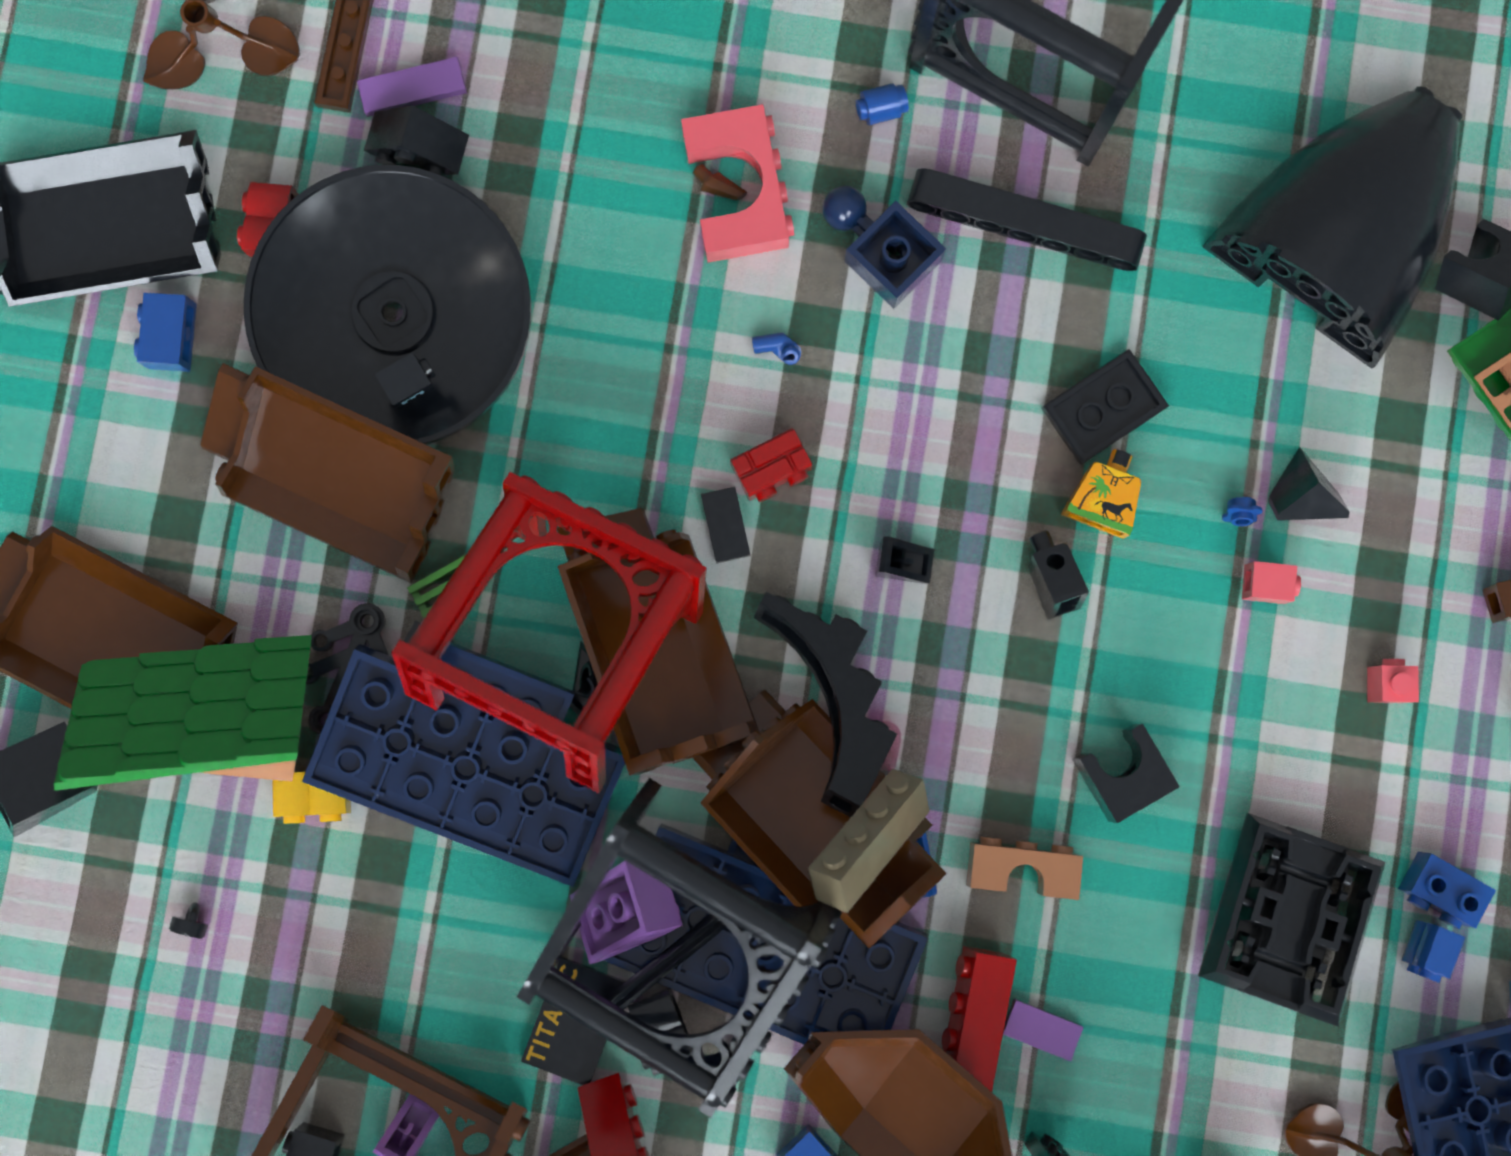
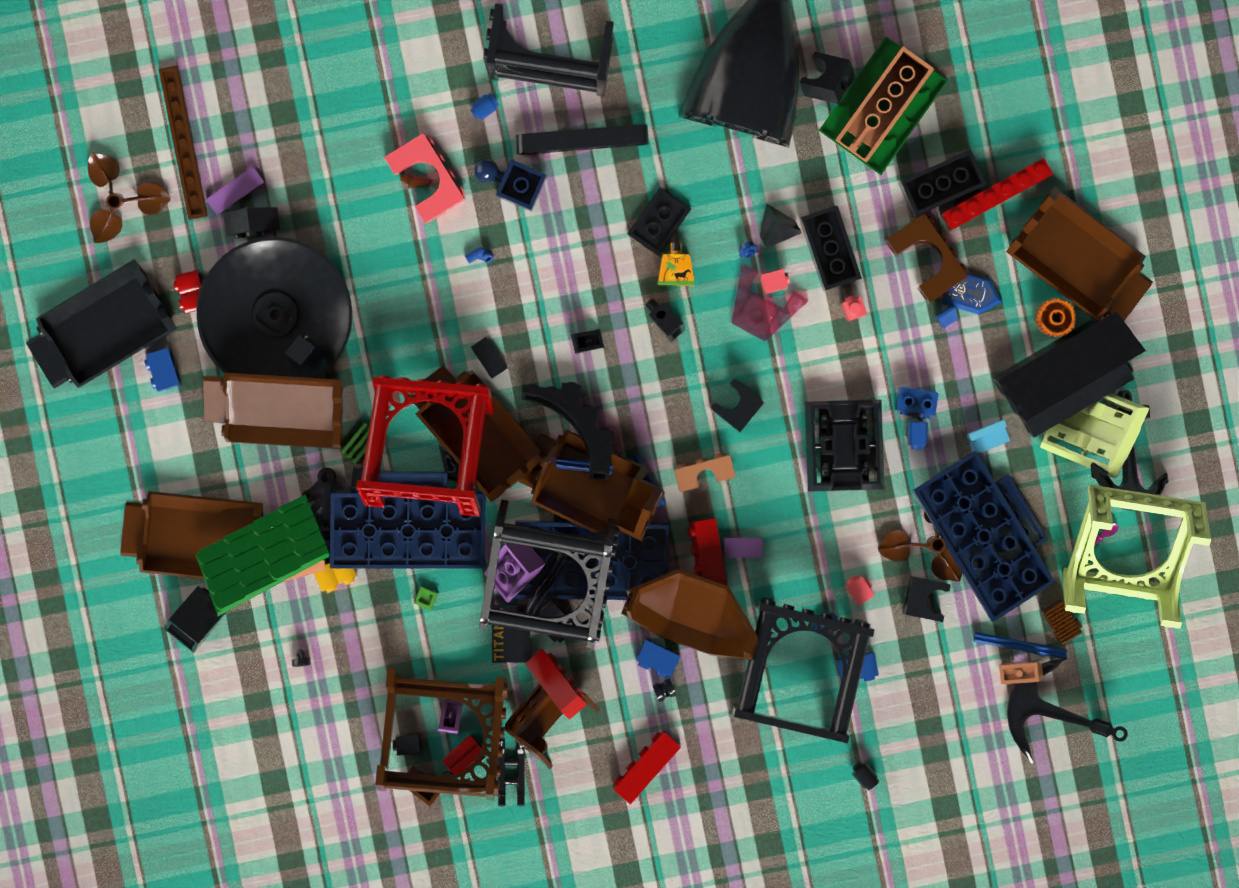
camera: 20 degrees left, 5 degrees up
(452, 899) = (426, 598): none -> bright green tile
(771, 465) = (500, 319): red brick -> none
(800, 765) = (574, 464): none -> blue axle
(869, 840) = (619, 487): dark tan brick -> none
(1217, 629) = (757, 314): none -> clear pink wing
(1390, 562) = (830, 248): none -> black brick

